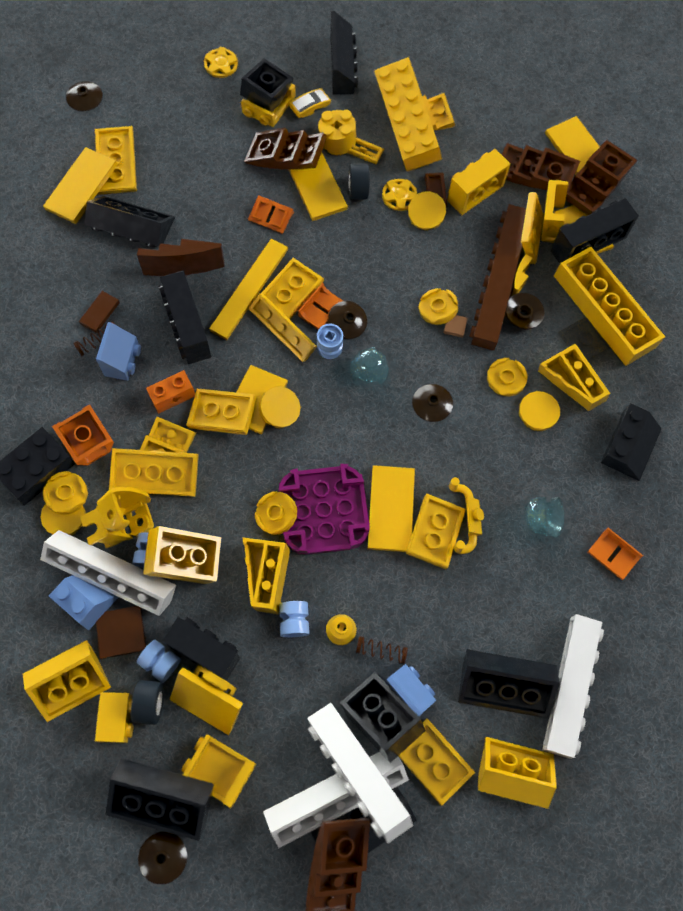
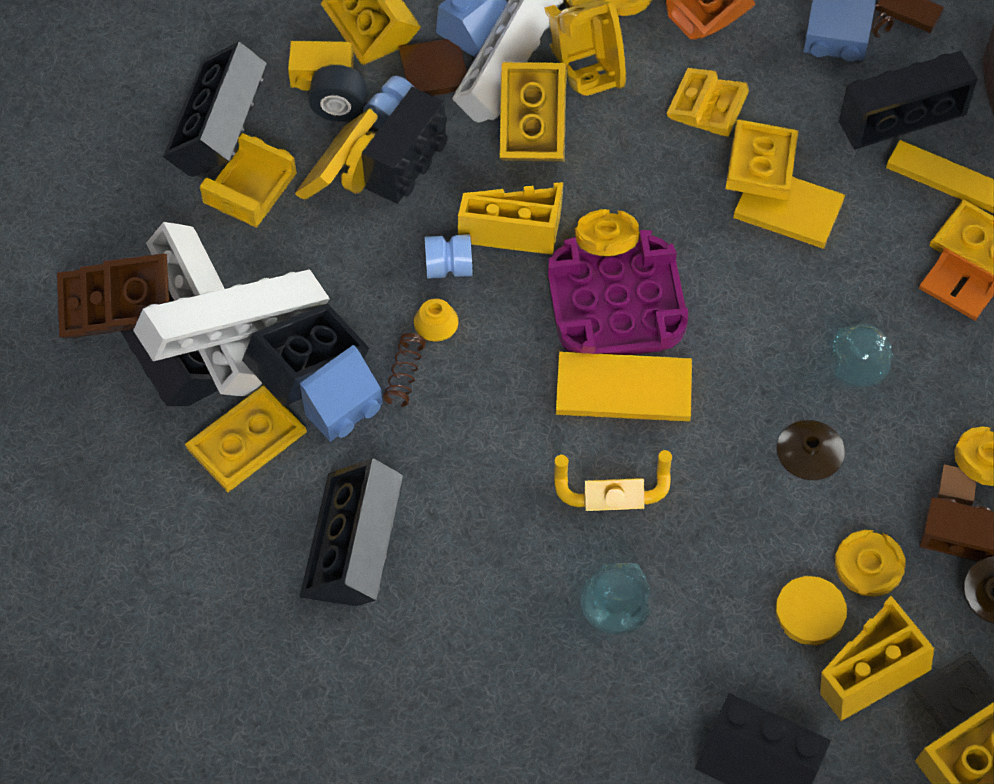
camera: 95 degrees right, 10 degrees down
(154, 471) = (660, 86): yellow tile -> none
(171, 391) = (786, 95): orange brick -> none
(175, 854) = (146, 141): dark brown dish -> none
(279, 407) = (776, 231): yellow tile -> none
(282, 327) = (914, 233): yellow tile -> none
(329, 341) = (896, 292): light blue wheel -> none
(350, 328) = (939, 338): dark brown dish -> none
(436, 531) = (592, 441): yellow tile -> none
(517, 773) = (223, 540): yellow slope -> none
(572, 695) = (345, 626): white brick -> none
(625, 558) = (549, 725): orange piece -> none

